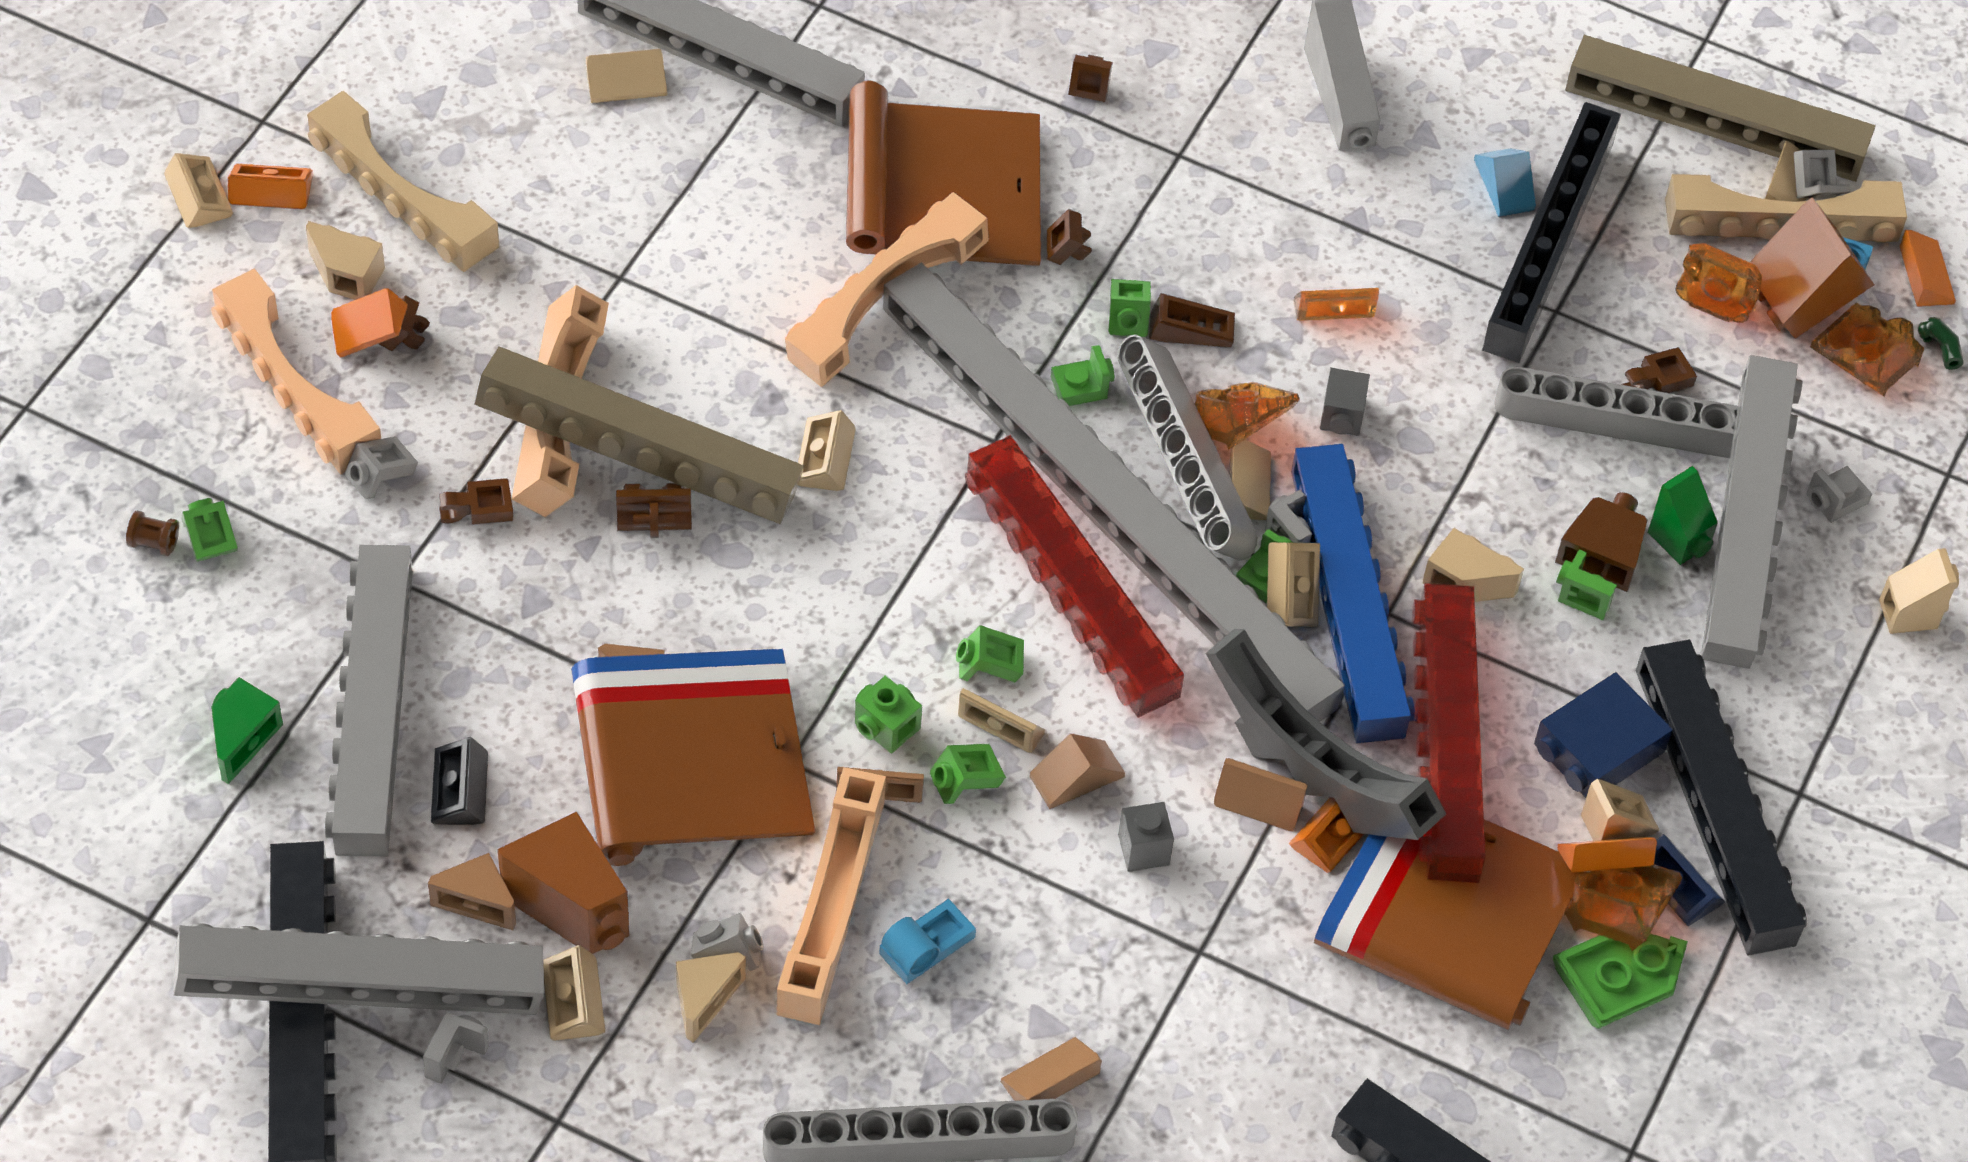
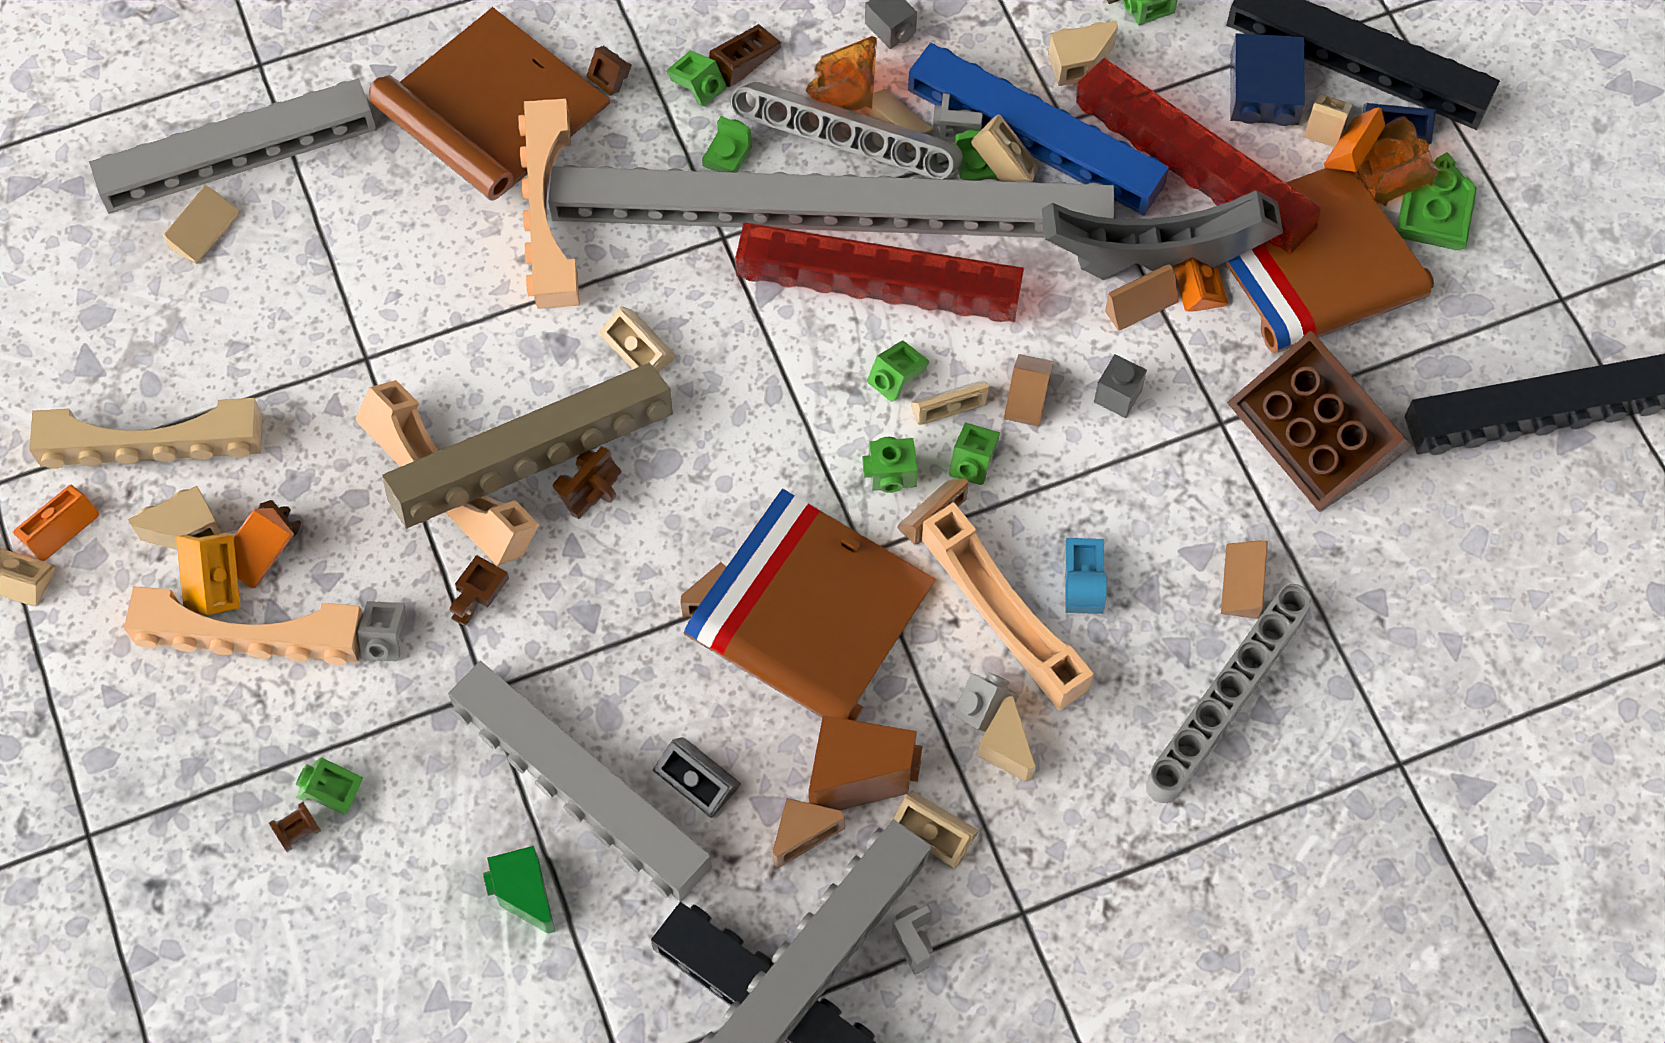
camera: 45 degrees left, 10 degrees up
(314, 310) = (208, 573): none -> light orange panel
(1276, 1024) = (1318, 422): none -> reddish brown slope

